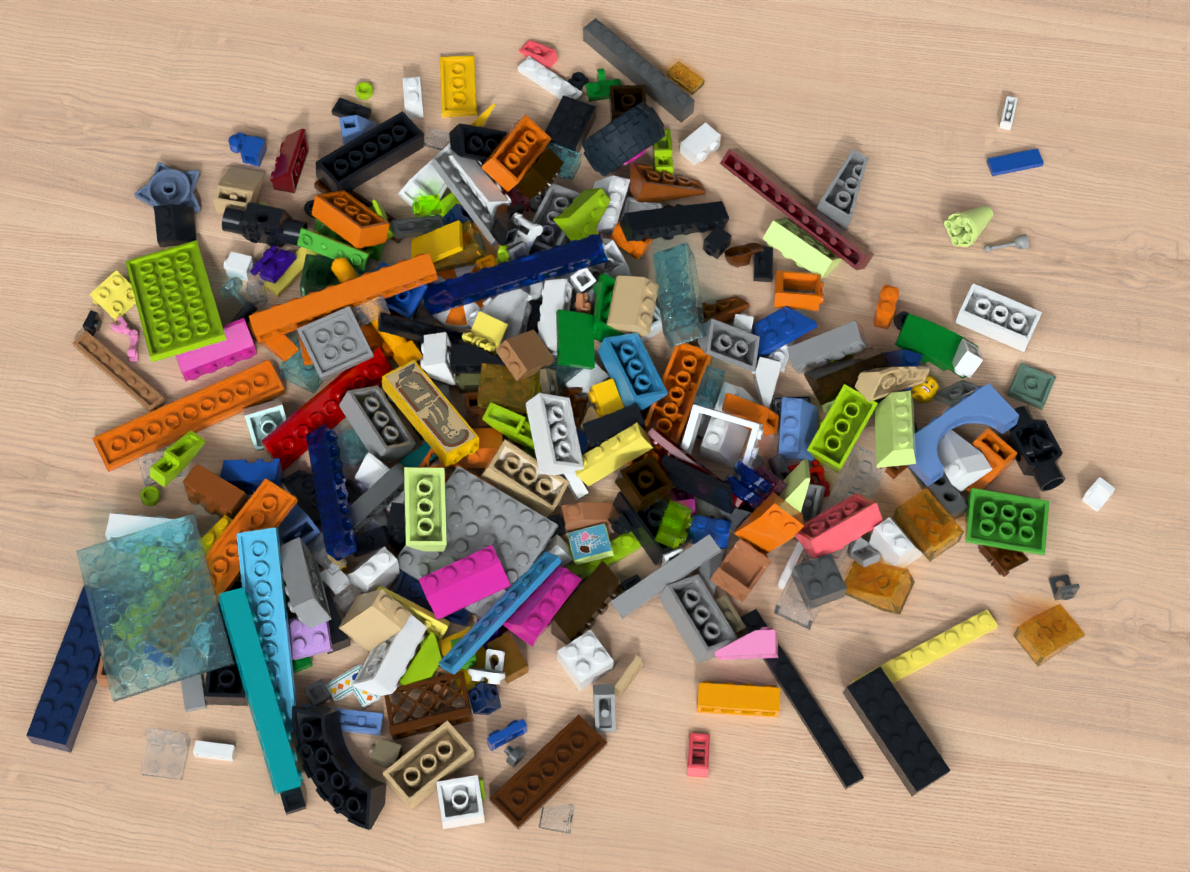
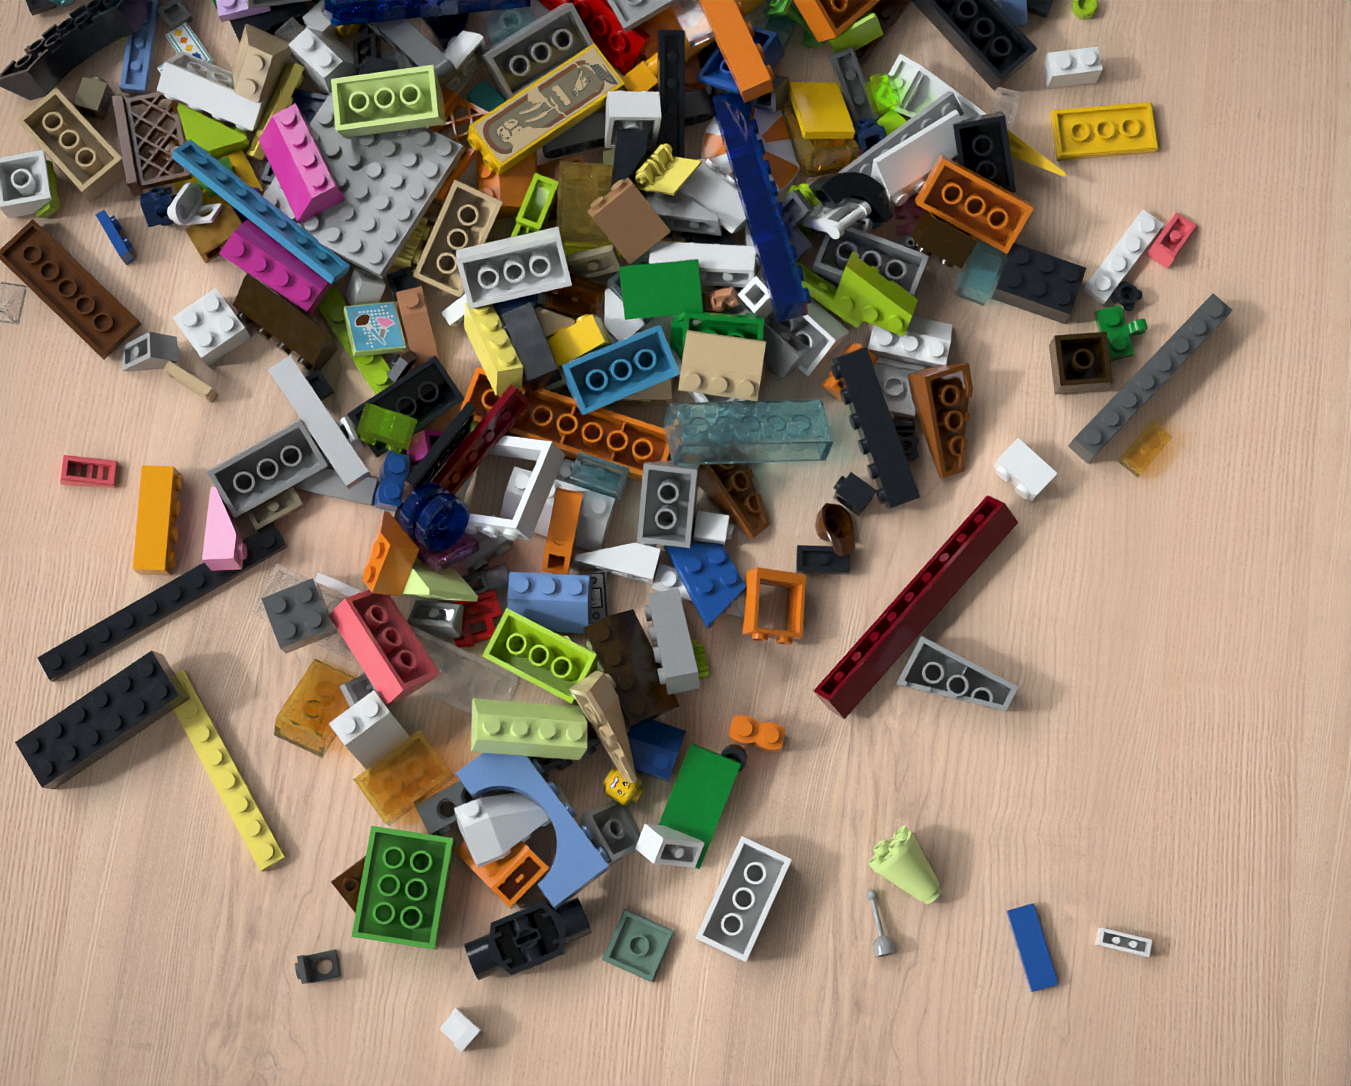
camera: 90 degrees right, 15 degrees up
(488, 261) = (791, 175): light orange plate -> none
(514, 755) = (88, 247): dark grey tile -> none
(623, 139) = (999, 346): black wheel -> none
(643, 483) = (439, 382): dark brown brick -> none
(663, 153) = (1007, 416): lime slope -> none
(740, 570) = (336, 523): nougat panel -> none
(801, 247) = (850, 612): yellowish green slope -> none
(1048, 634) = (247, 942): clear yellow slope -> none

